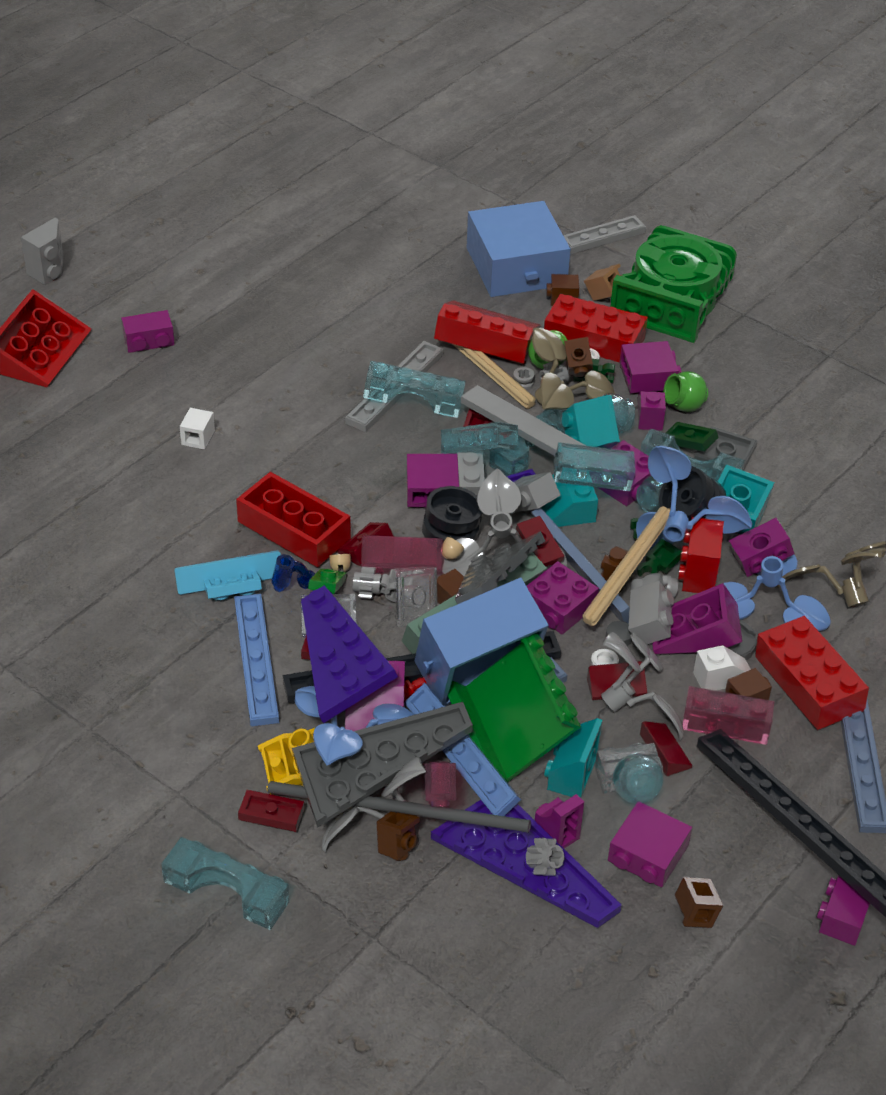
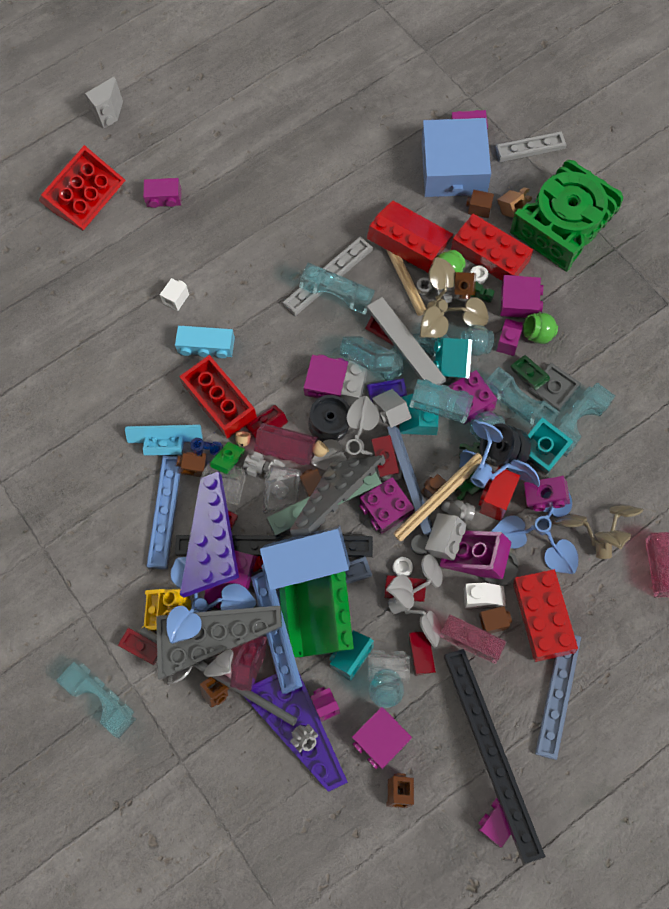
camera: 20 degrees right, 25 degrees up
(244, 468) = (204, 341): none -> medium azure brick
(279, 596) = (191, 464): none -> reddish brown brick
(780, 455) = (594, 403): none -> clear light blue arch

